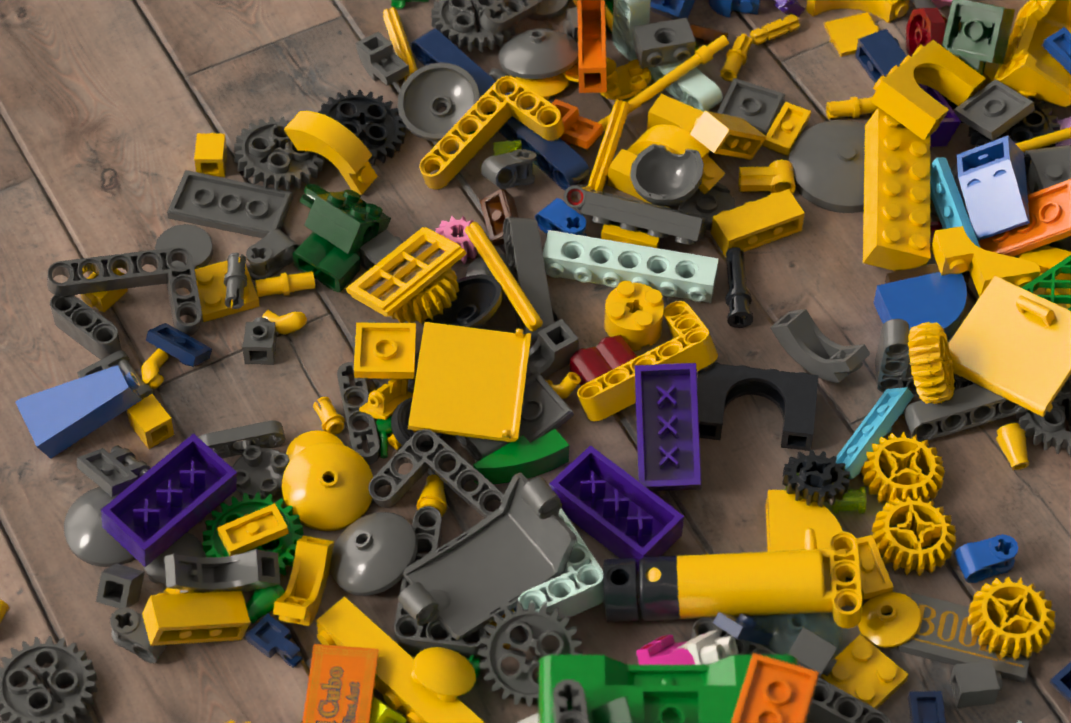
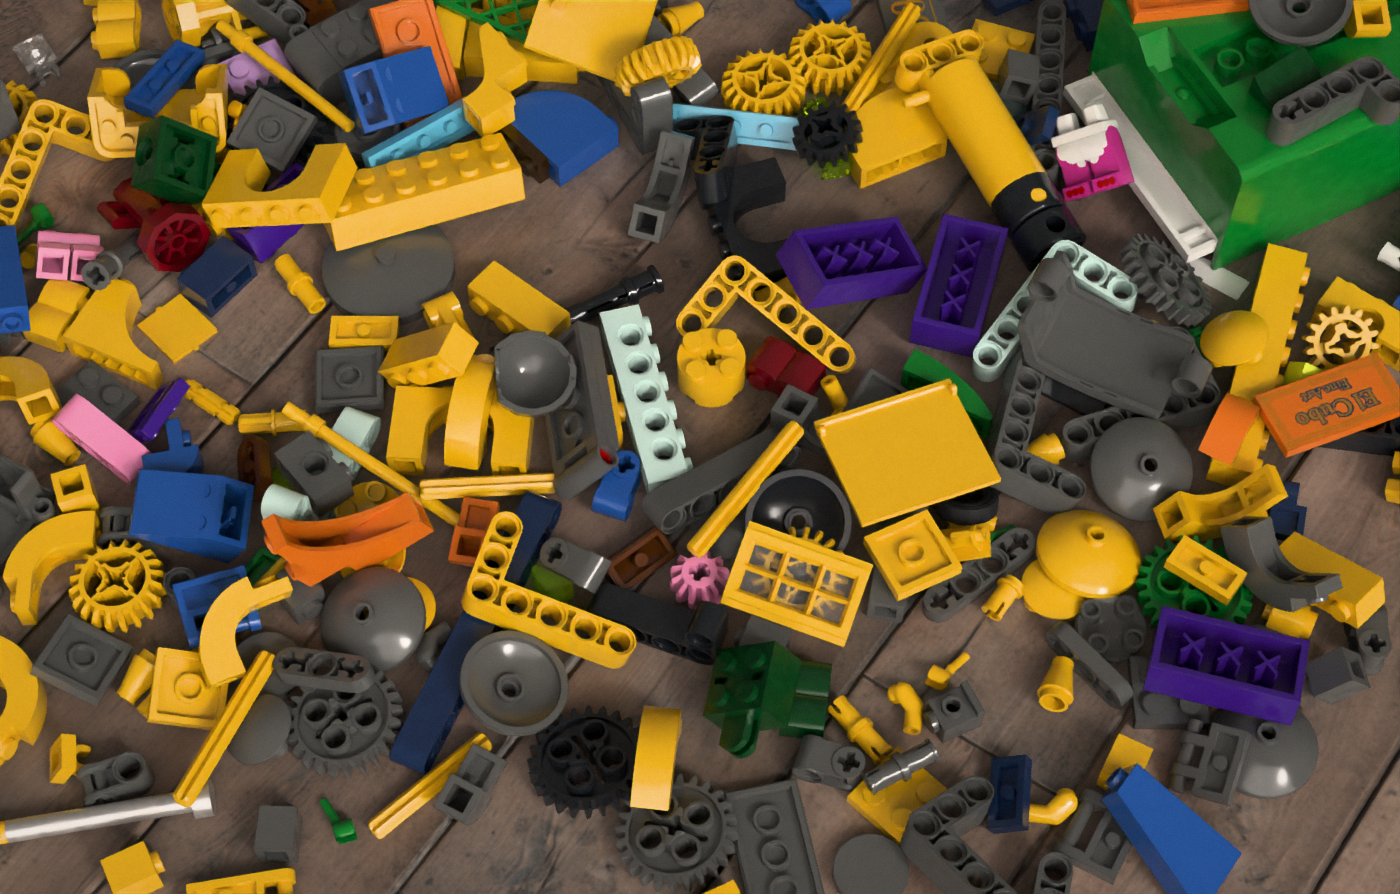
camera: 115 degrees left, 5 degrees up
(236, 411) = (1057, 687): none -> yellow cone
(294, 349) = (939, 678): none -> yellow hand
(360, 607) = (1229, 428): none -> orange brick
(438, 202) = (663, 625): none -> black beam
(828, 383) = (714, 154): none -> black beam
(887, 563) = (882, 57): none -> yellow axle

